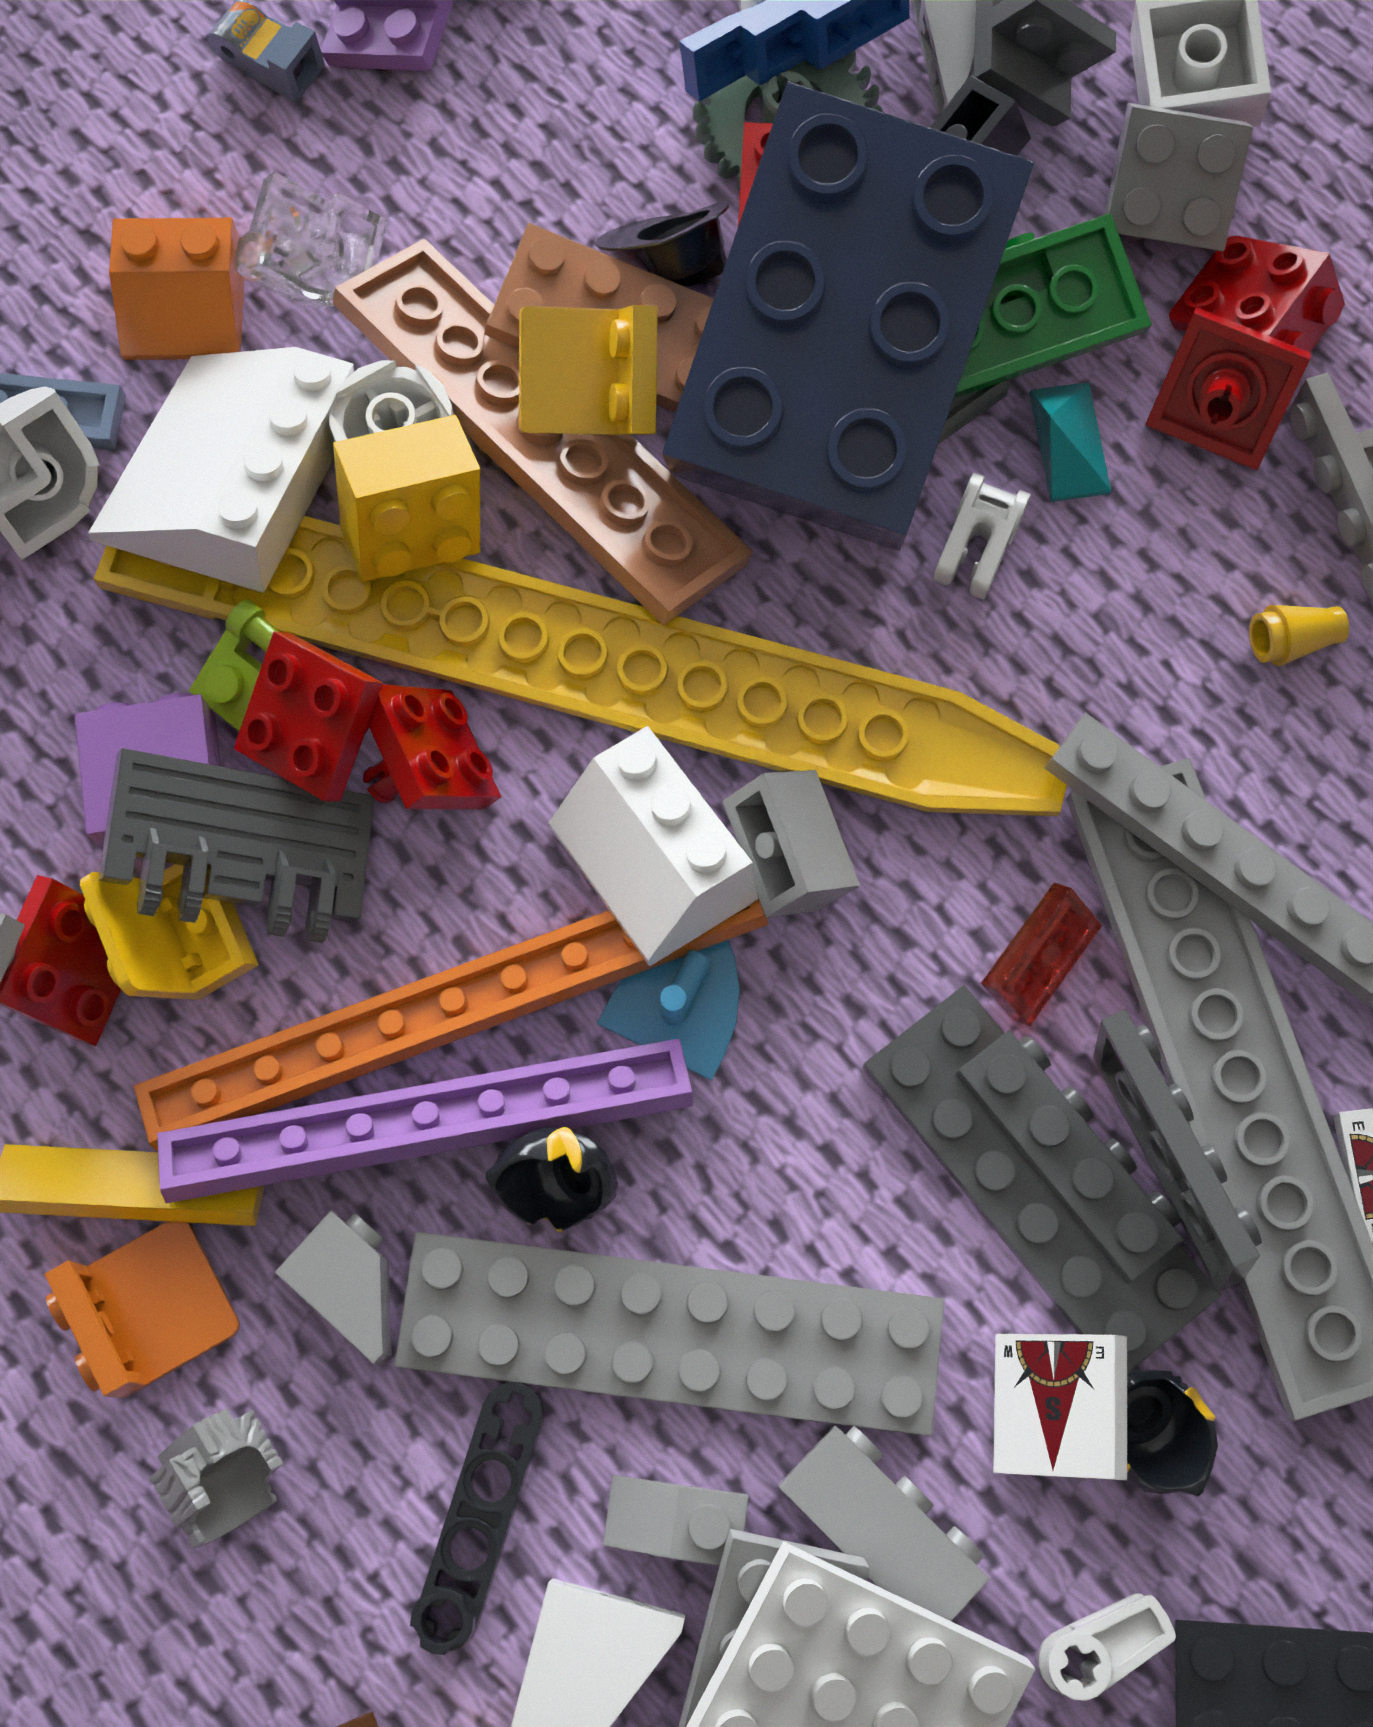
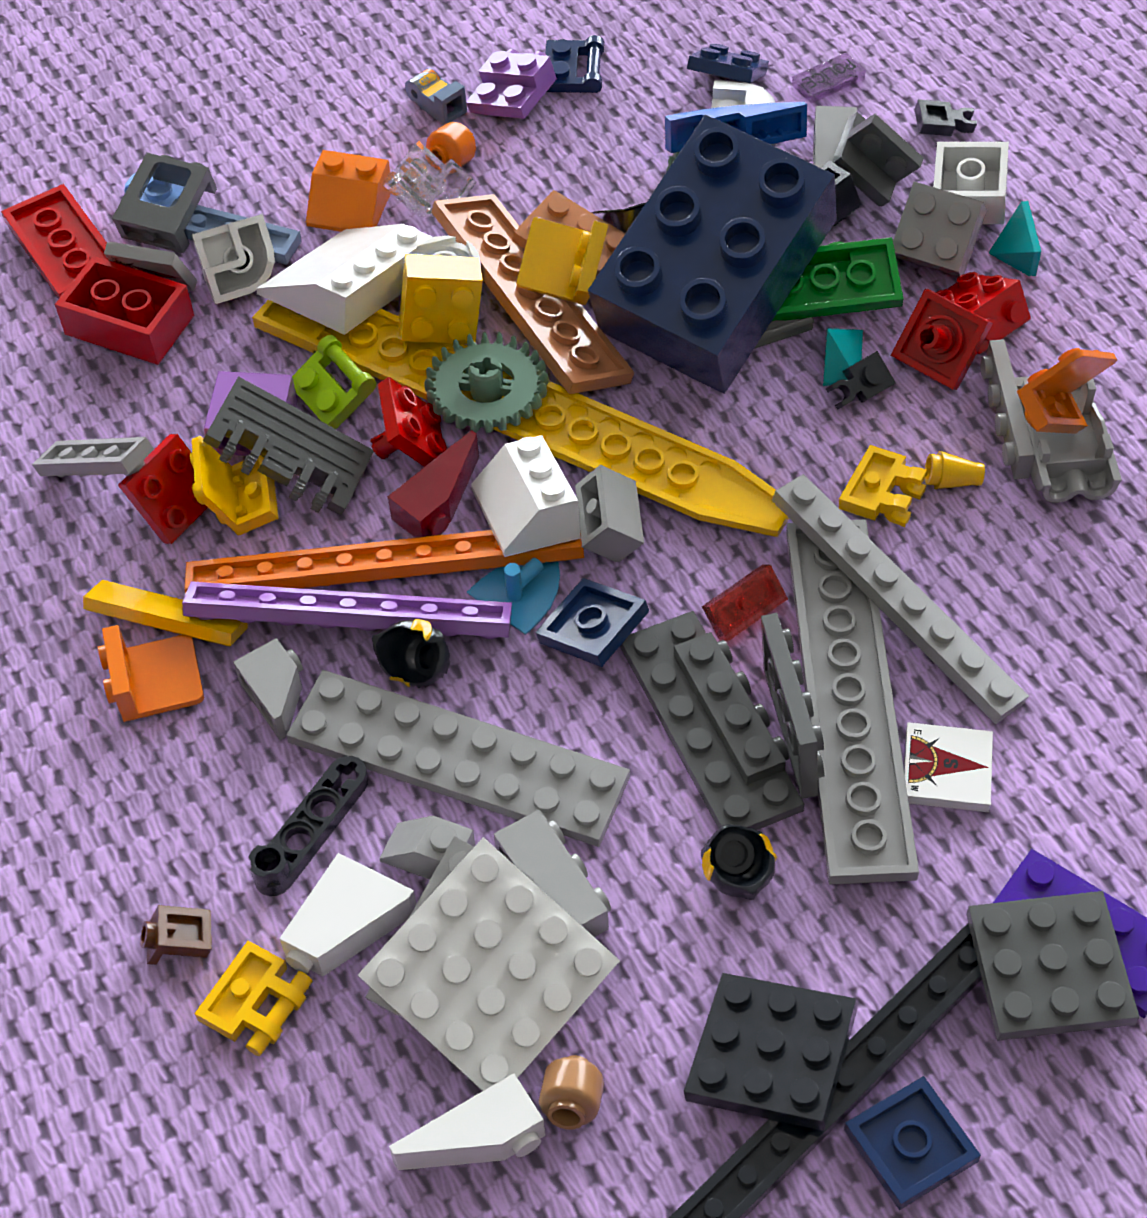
camera: 15 degrees right, 20 degrees down
(217, 1476) = (163, 763): light grey hair -> none
(307, 716) = (348, 392): red plate -> none
(324, 153) = (452, 142): none -> orange head
(495, 866) = (432, 495): none -> dark red slope
(516, 587) = (481, 372): none -> sand green gear
(817, 1049) = (592, 622): none -> dark blue plate
(983, 513) = (779, 382): white piece -> none
(1061, 1405) = (682, 833): white tile -> none
(1115, 1643) = (673, 974): white piece -> none
(1120, 487) = (863, 379): none -> black plate
(1181, 678) = (872, 484): none -> yellow plate
(1298, 161) = (1019, 242): none -> teal slope

